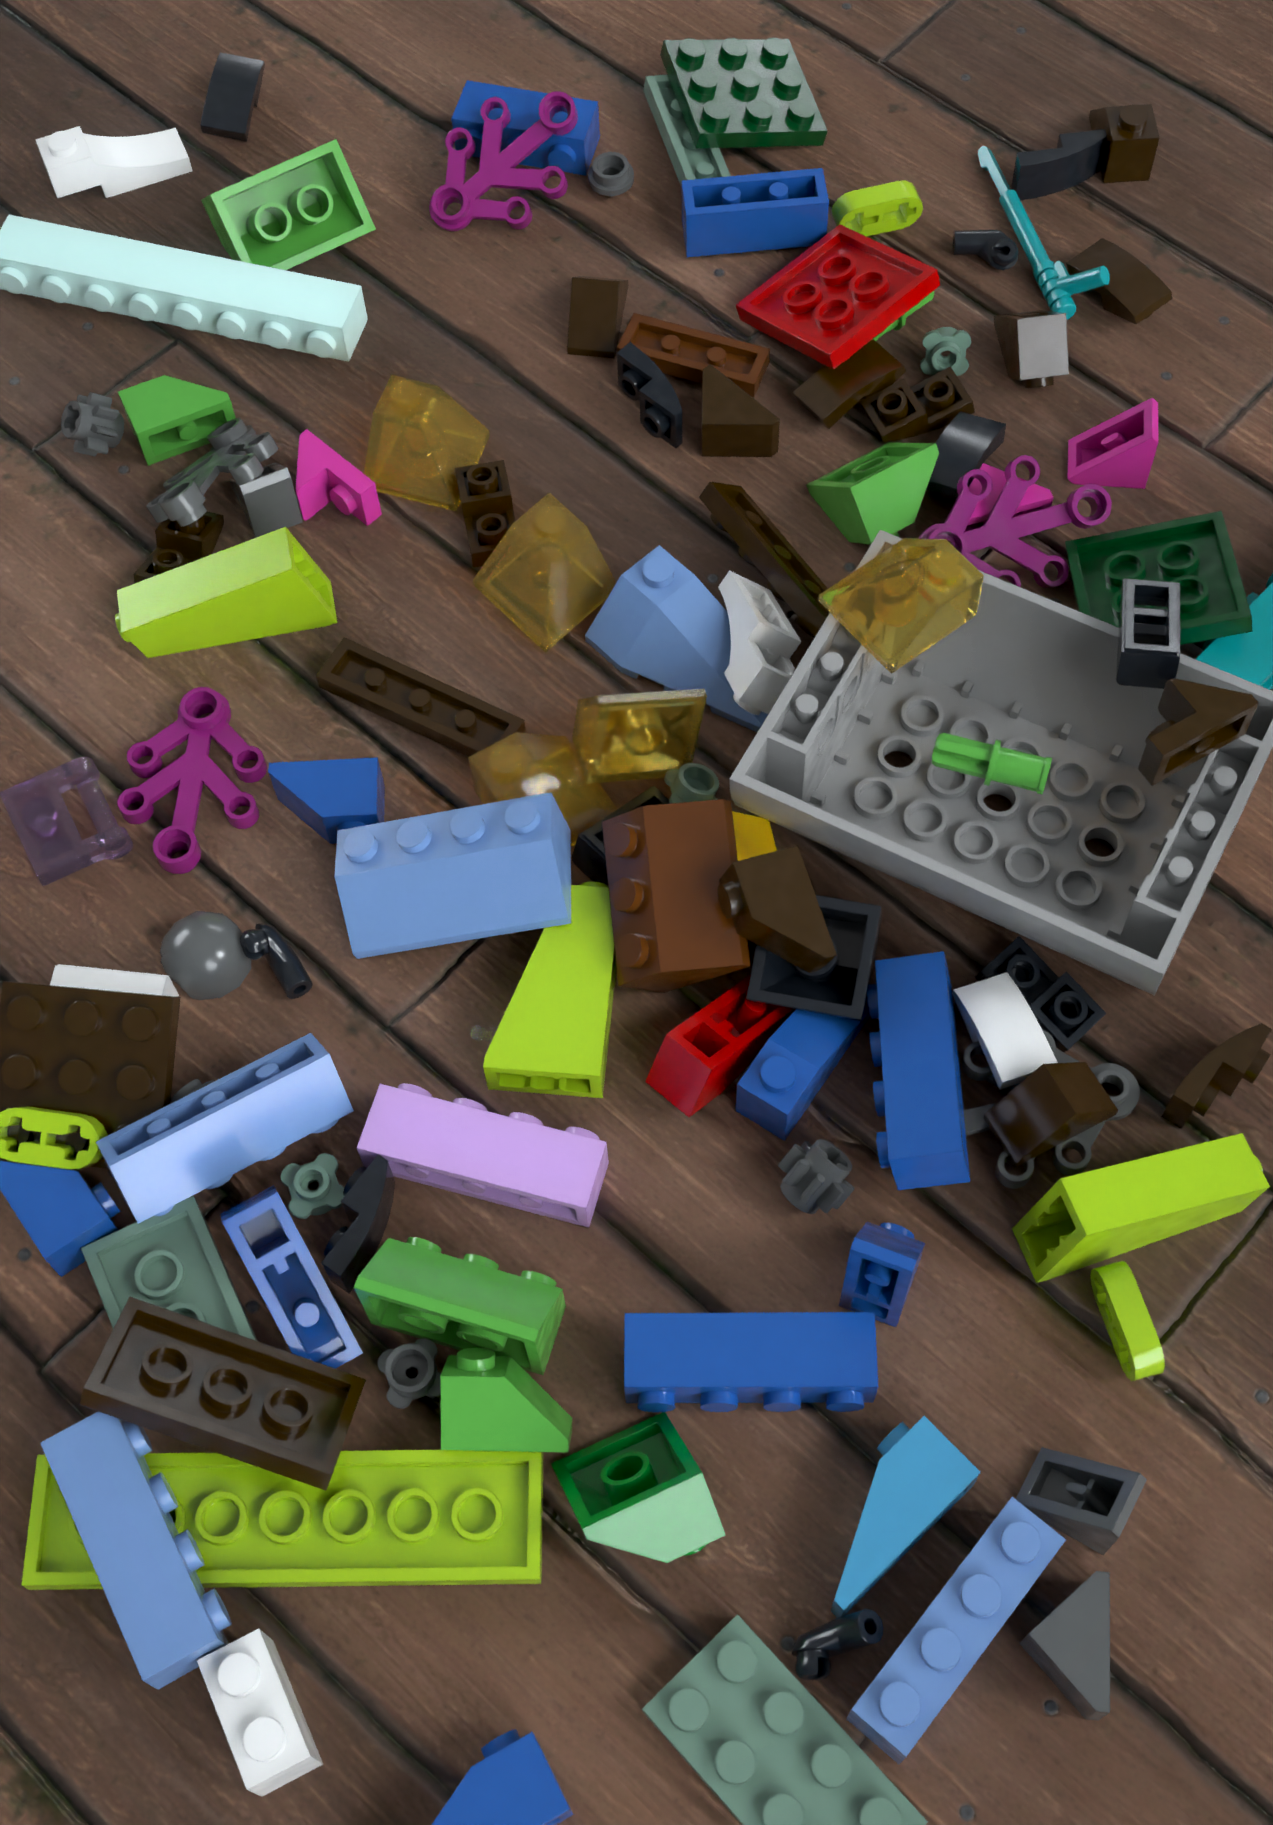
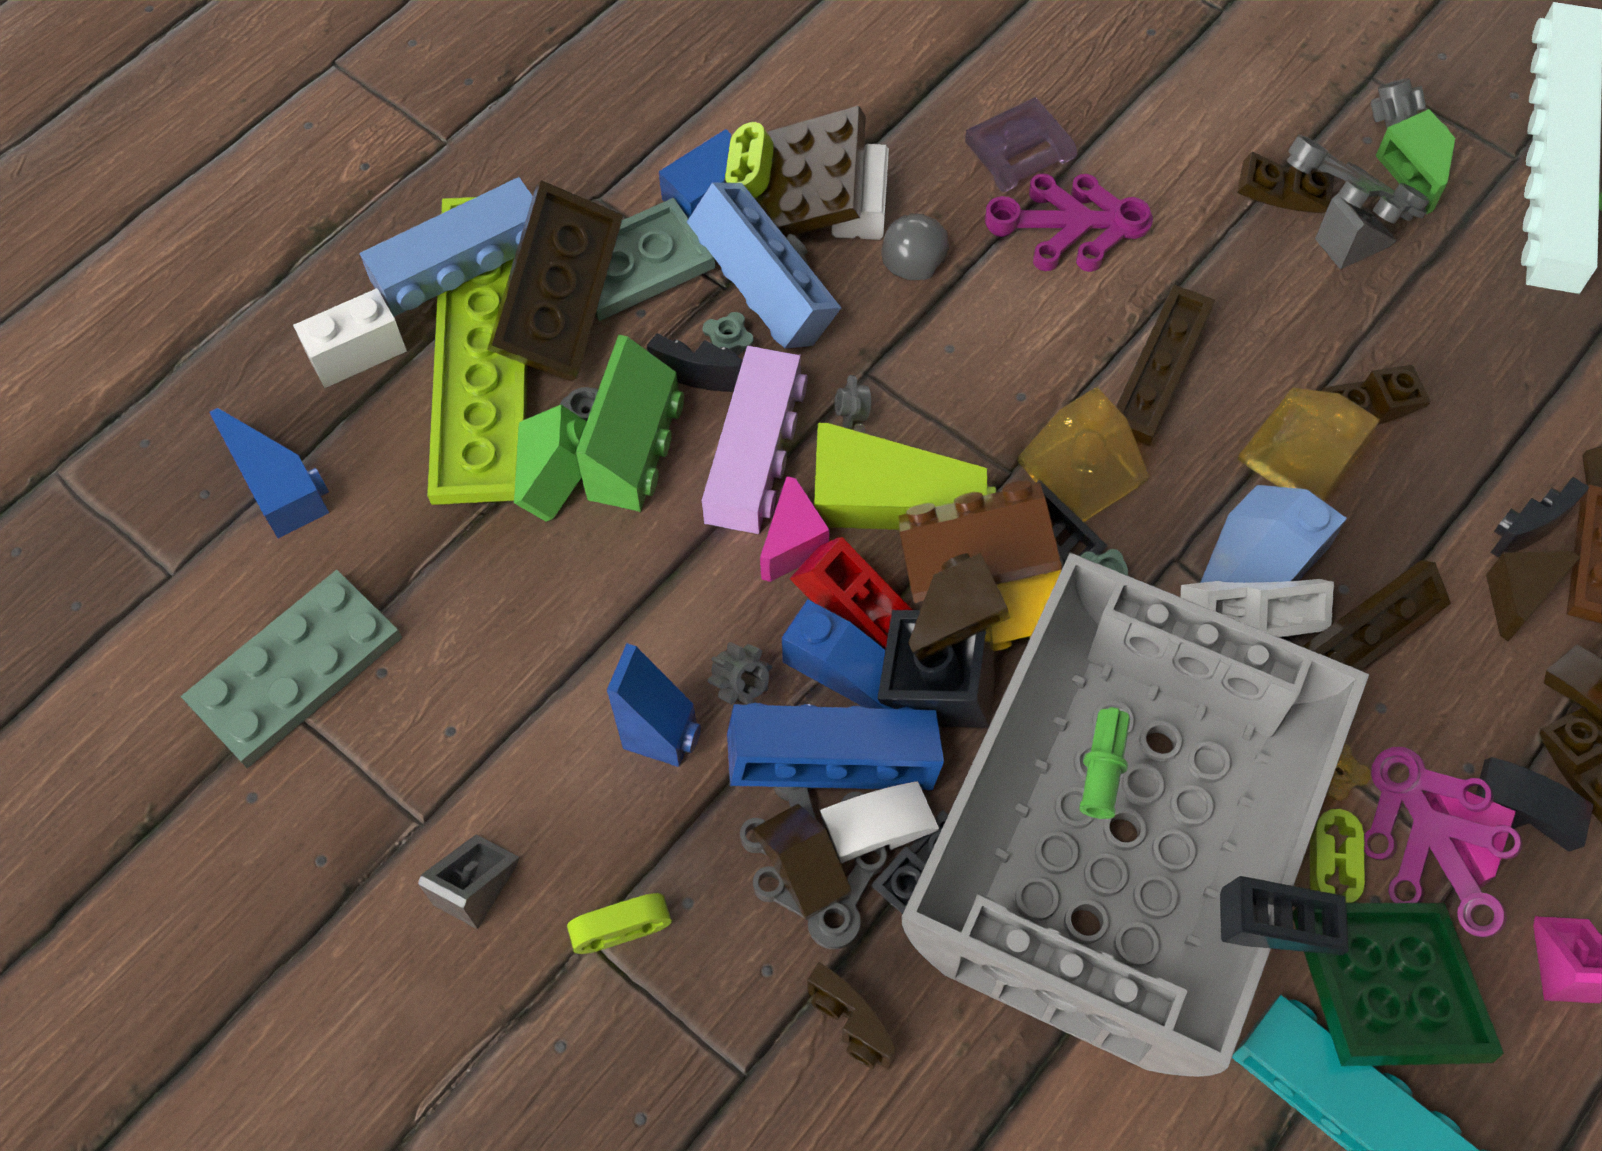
camera: 85 degrees right, 0 degrees up
(228, 598) = (1239, 217): lime slope -> none
(280, 956) = (917, 294): black arm -> none
(289, 1280) = (670, 305): slope -> none
(329, 477) = (1377, 270): dark pink slope -> none
(331, 793) = (1059, 313): blue slope -> none
(420, 441) = (1439, 336): clear yellow slope -> none
(440, 1036) = (853, 402): none -> dark grey plate
(455, 875) = (986, 391): medium blue slope -> none
(621, 1112) = (792, 534): none -> dark pink slope
(637, 733) = (1143, 511): clear yellow slope -> none
(641, 1492) = (486, 557): green slope -> none
(750, 1360) = (587, 629): blue brick -> none
(833, 1639) = (377, 696): black arm -> none
(877, 490) = (1465, 717): bright green slope -> none
(906, 599) = (1279, 688): clear yellow slope -> none
(908, 1495) = (470, 739): dark azure slope -> none
(955, 1630) = (372, 778): medium blue brick -> none
(1075, 1646) = (352, 869): dark grey slope -> none
(1137, 1204) = (722, 942): lime slope -> none
(1196, 724) = (1172, 961): dark brown slope -> none

